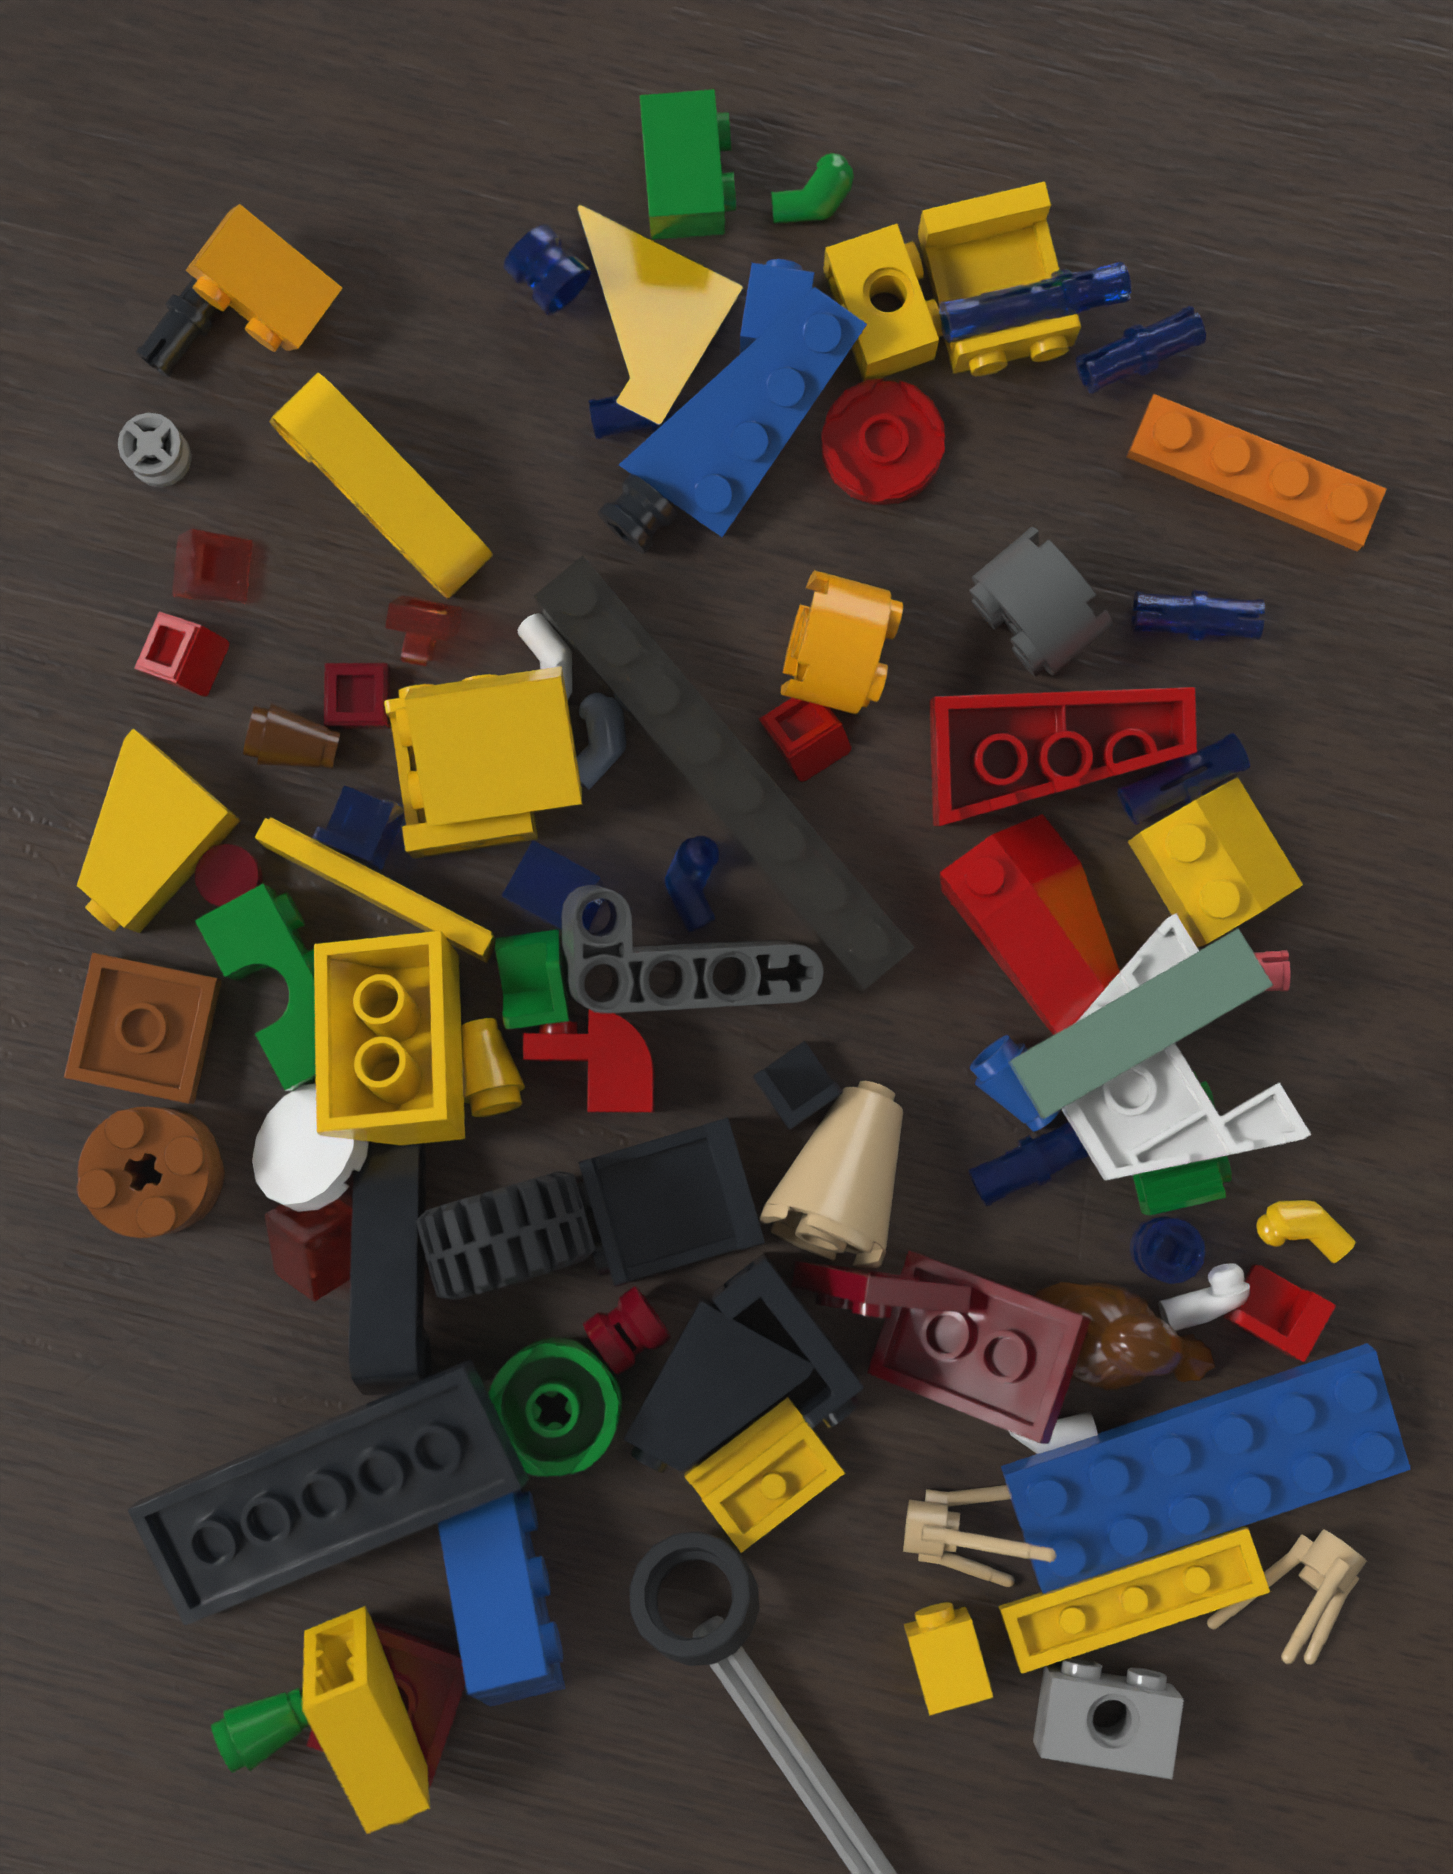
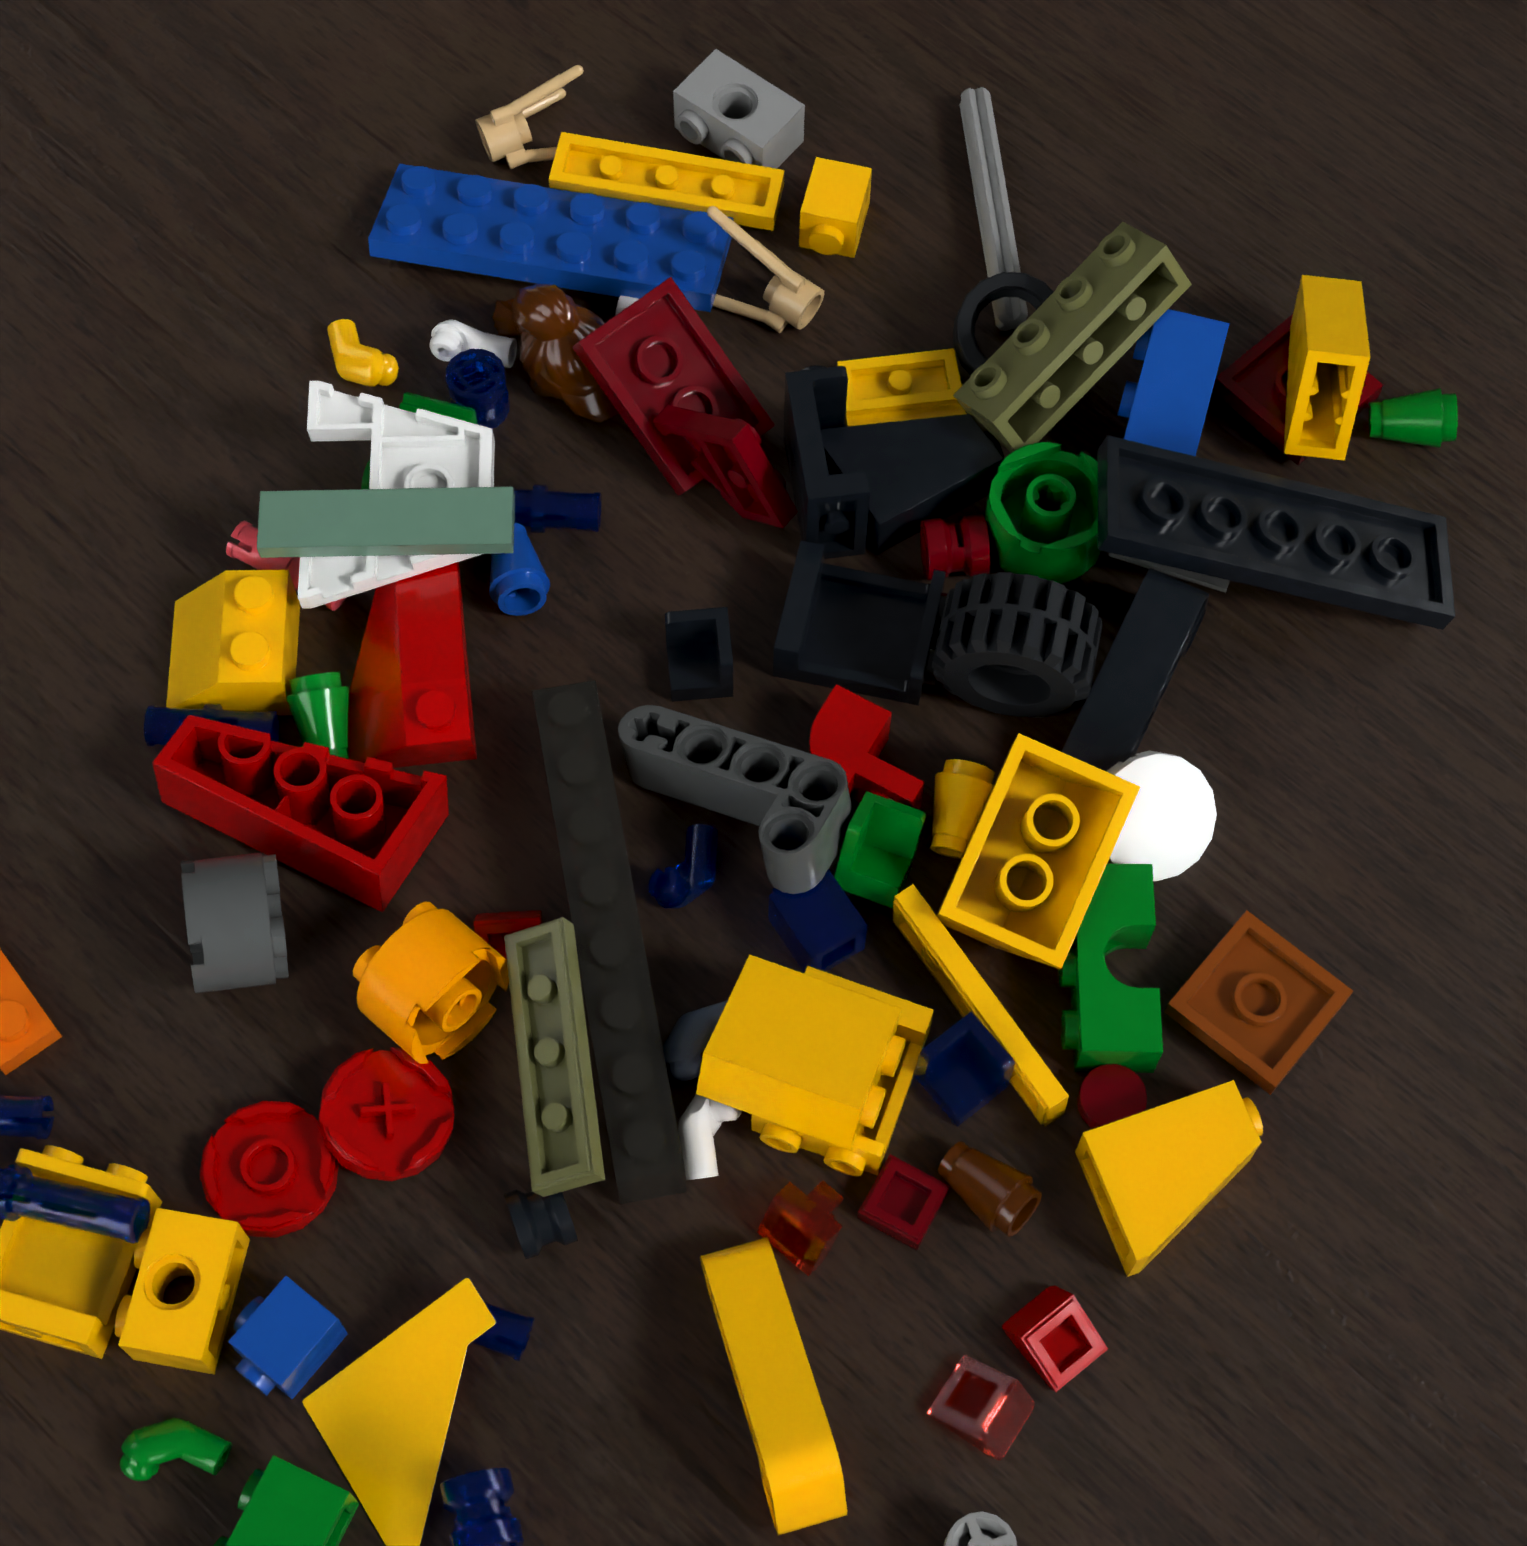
camera: 155 degrees left, 20 degrees down
(114, 1179) = (1339, 860): dark orange brick -> none
(311, 1247) = (1195, 734): clear red panel -> none
(614, 1594) = (1073, 338): none -> olive brick
(695, 629) = (553, 1058): none -> olive tile
(737, 425) = (376, 1243): blue wing -> none
(813, 524) = (386, 1114): none -> red tile
(843, 1179) = (706, 557): tan cone -> none
(1094, 839) = (321, 710): none -> green cone
(1197, 615) = (102, 856): clear blue pin -> none
(1281, 1313) = (417, 300): red panel -> none

